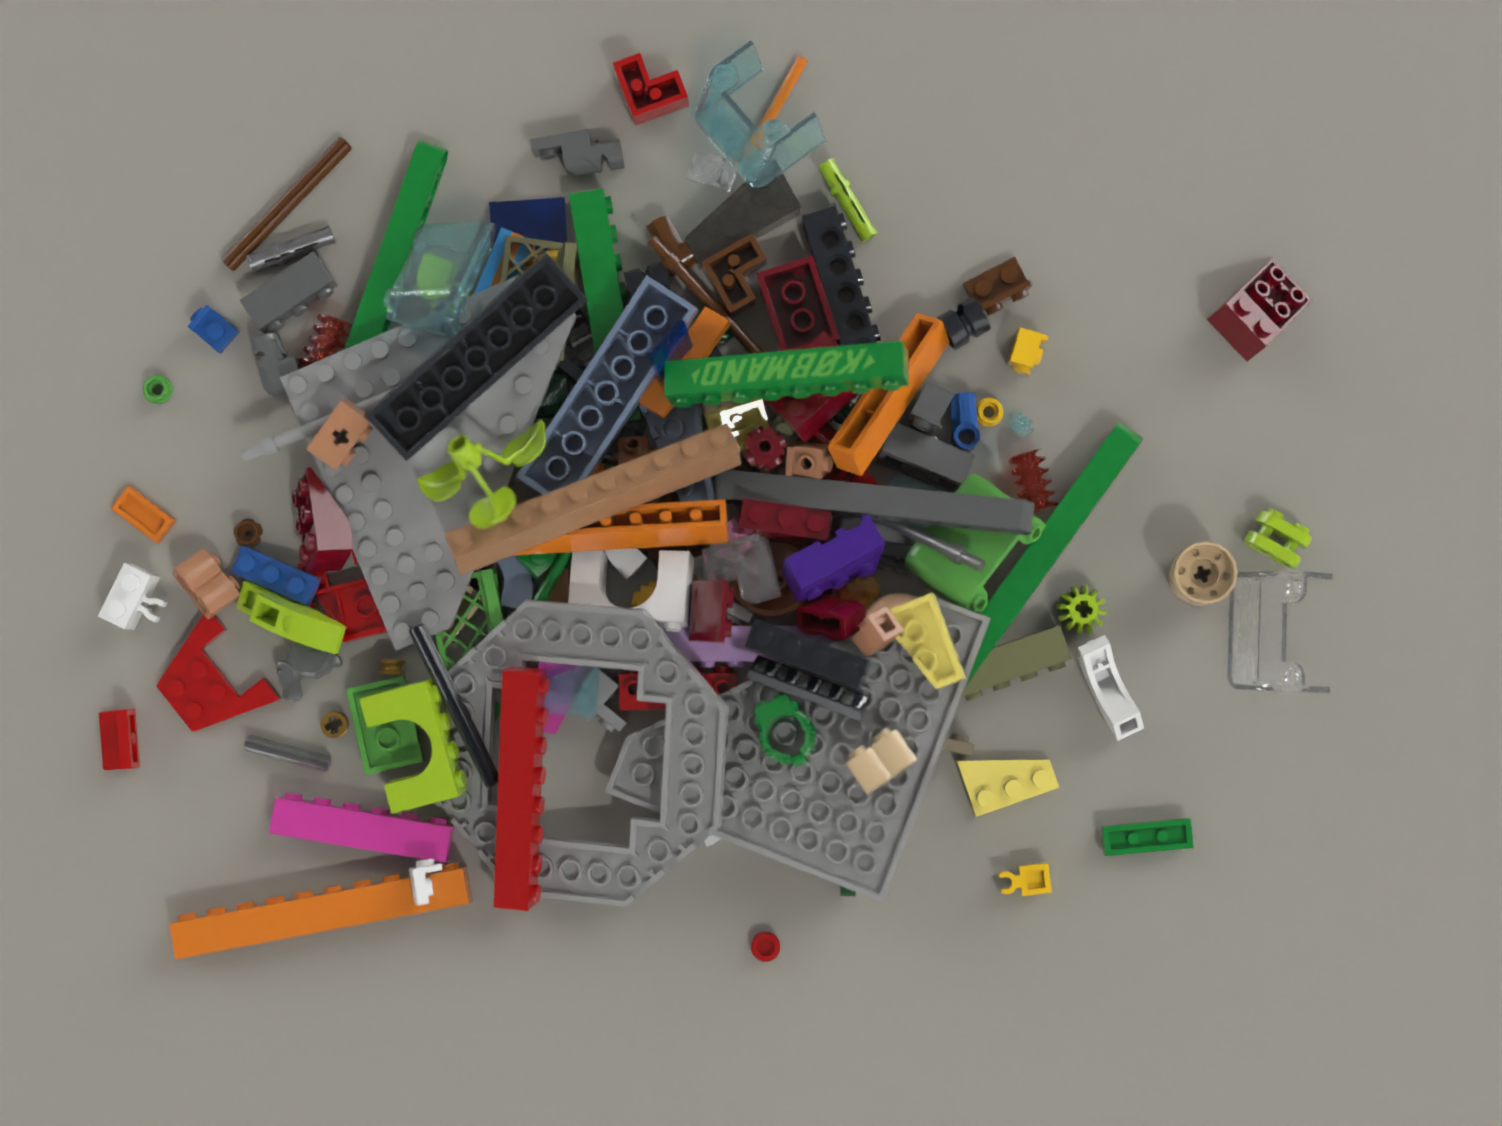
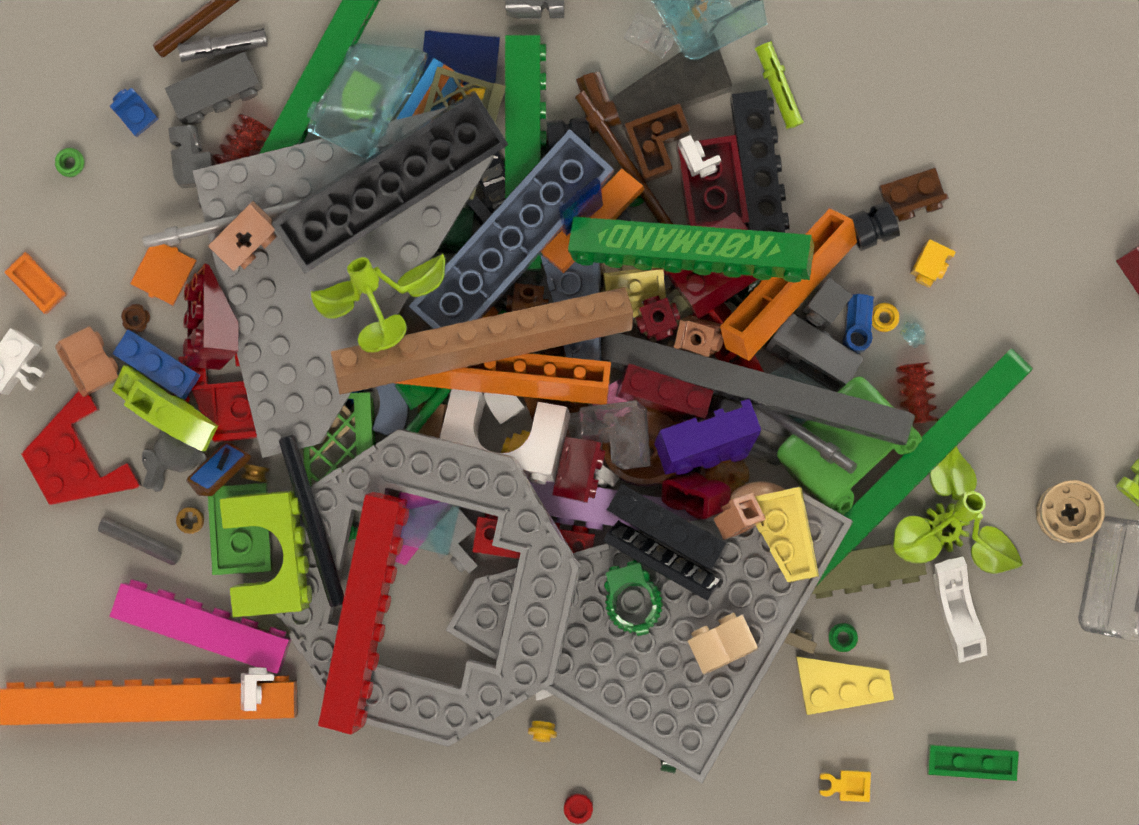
camera: 15 degrees right, 0 degrees up
(269, 483) = (163, 273): none -> orange piece
(353, 669) = (217, 469): none -> slope
(717, 876) = (542, 731): none -> yellow plate
(773, 280) = (692, 155): none -> white bracket
(1008, 734) = (852, 637): none -> green plate
(1058, 629) = (917, 542): none -> lime plant

